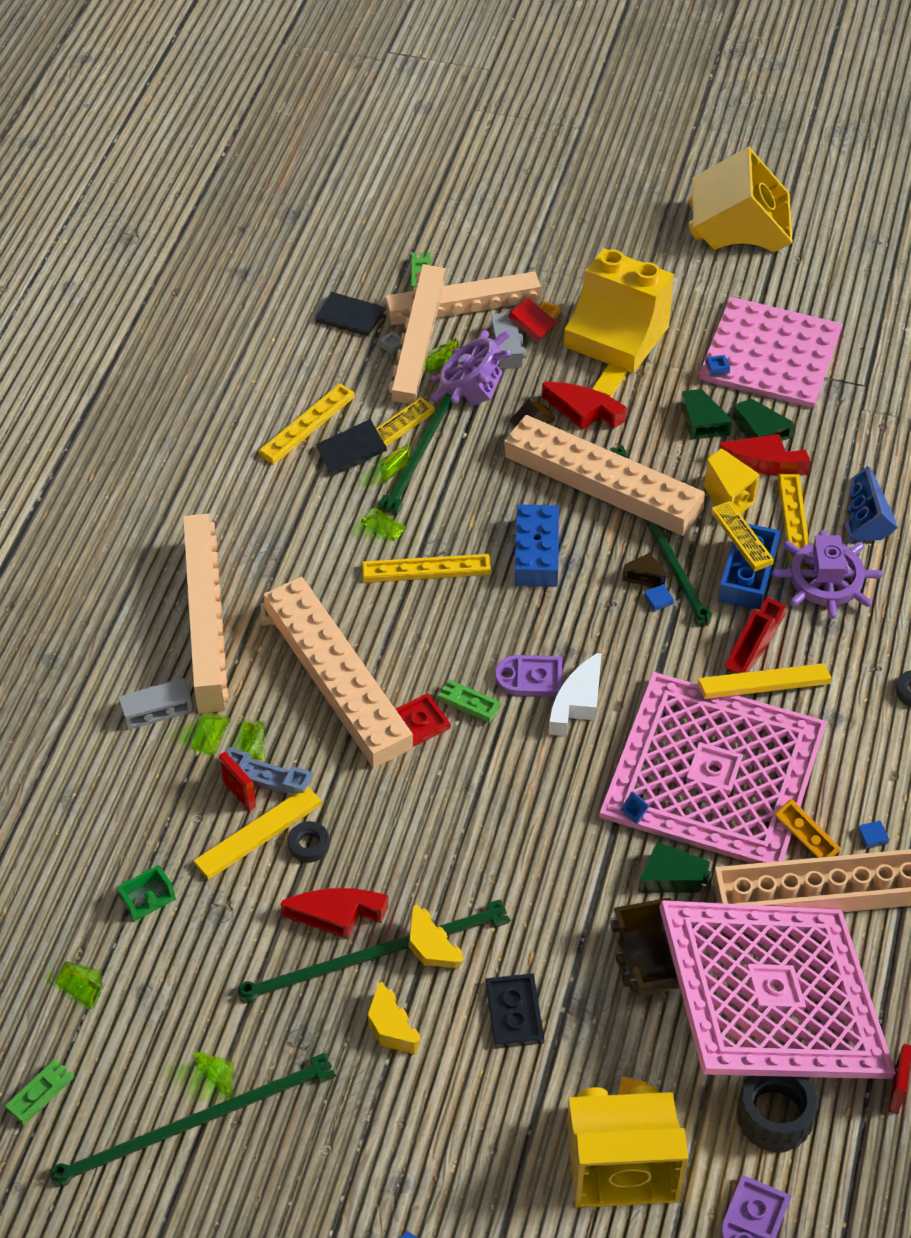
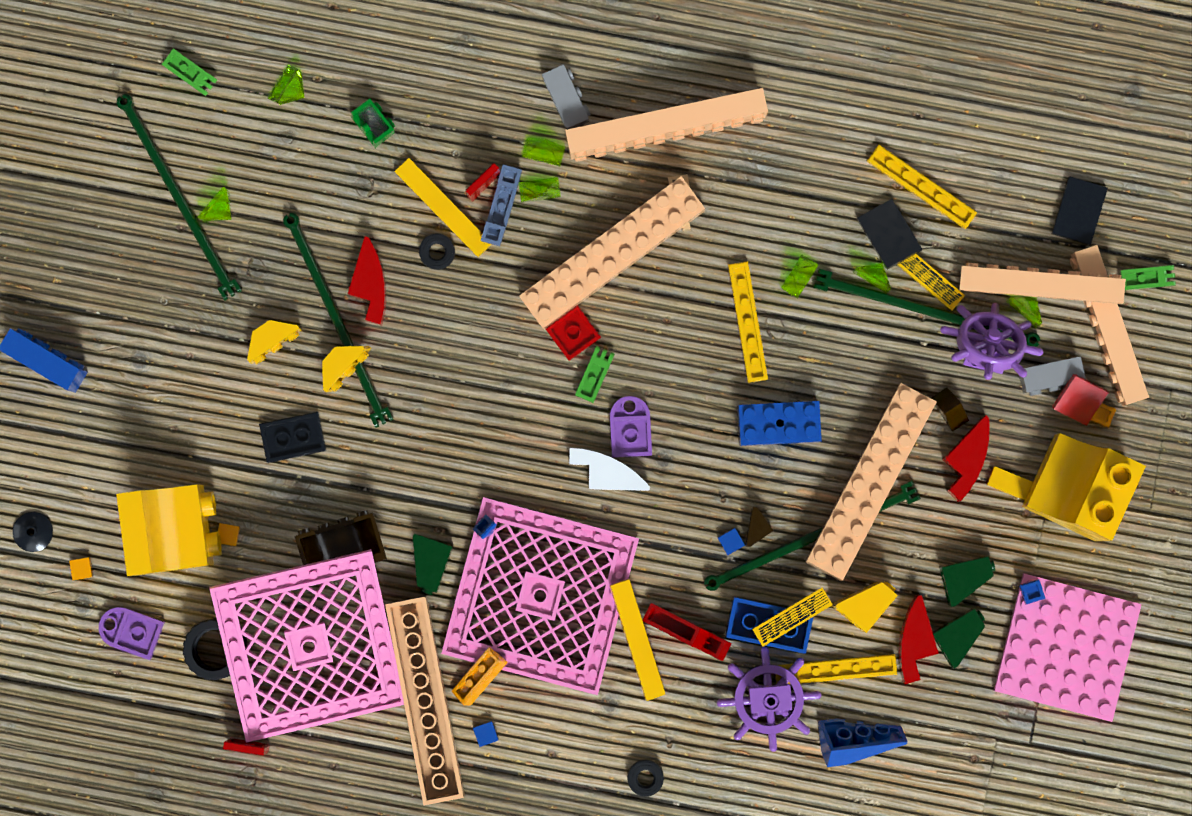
camera: 85 degrees right, 35 degrees up
(391, 343) = (1042, 258): light grey tile -> none

